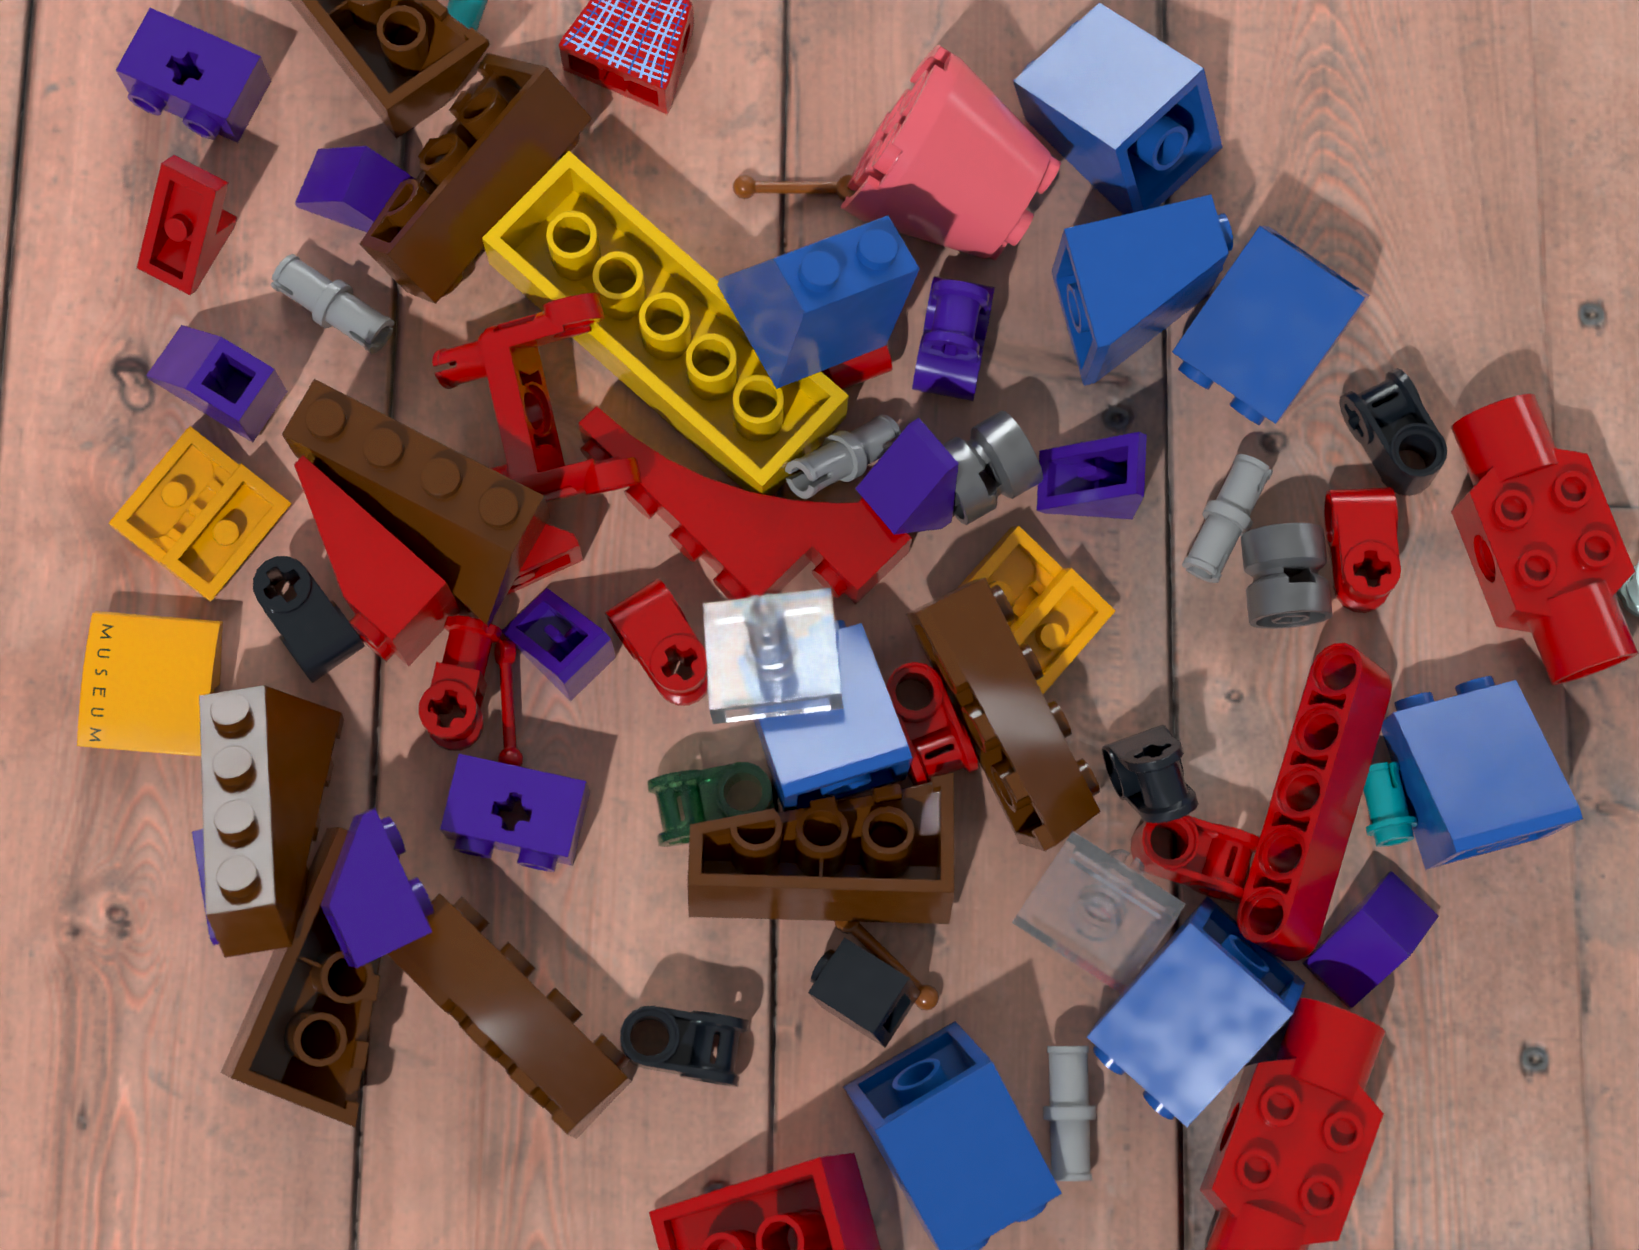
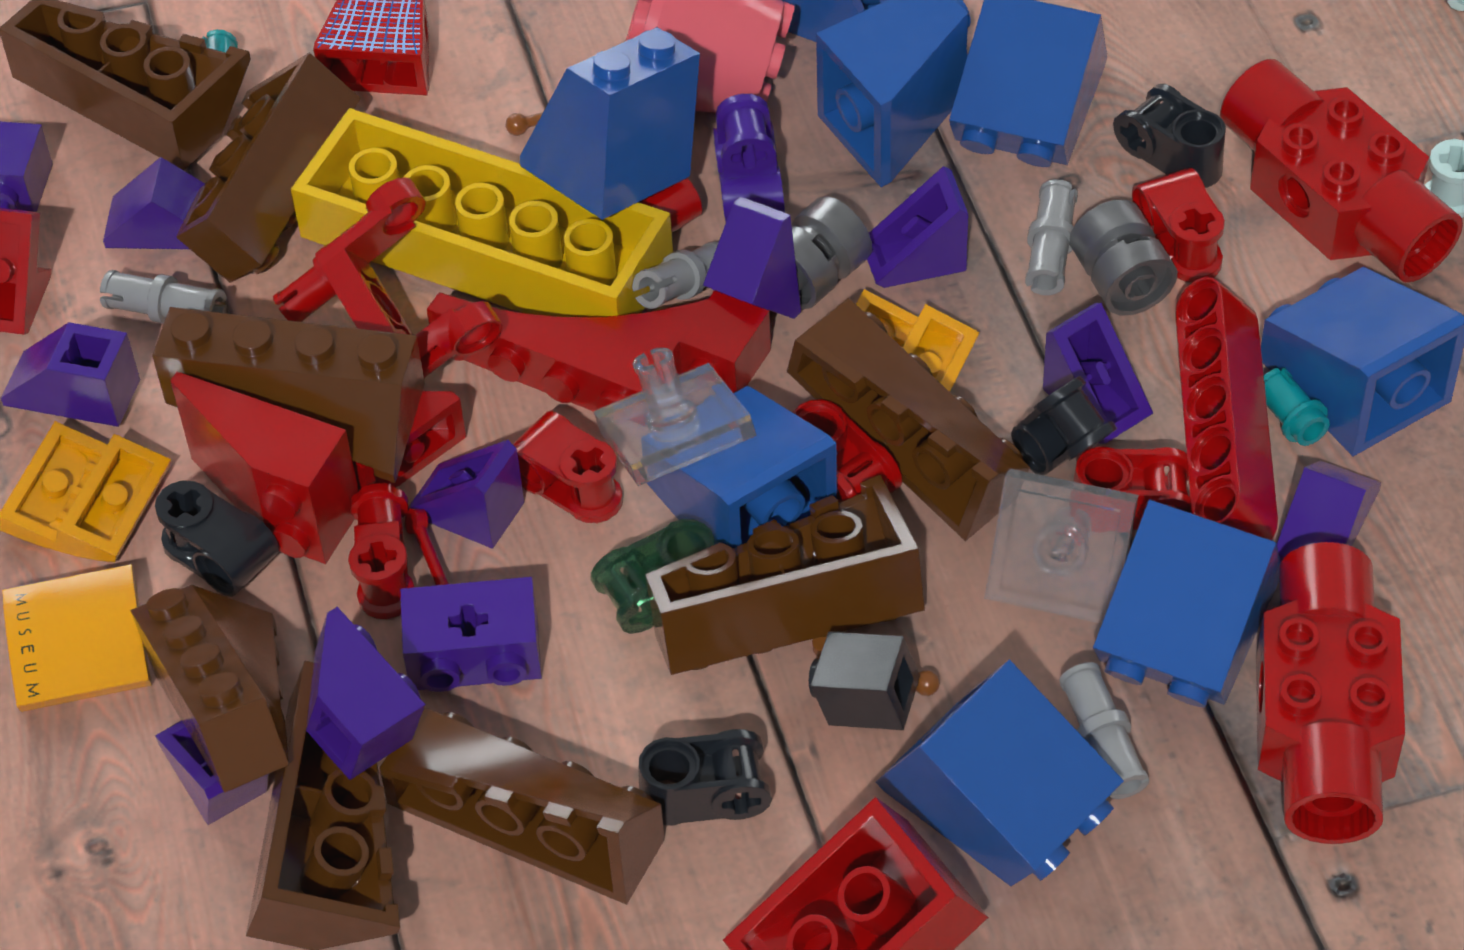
camera: 10 degrees left, 25 degrees down
(1206, 713) = (1091, 349): none -> dark purple slope

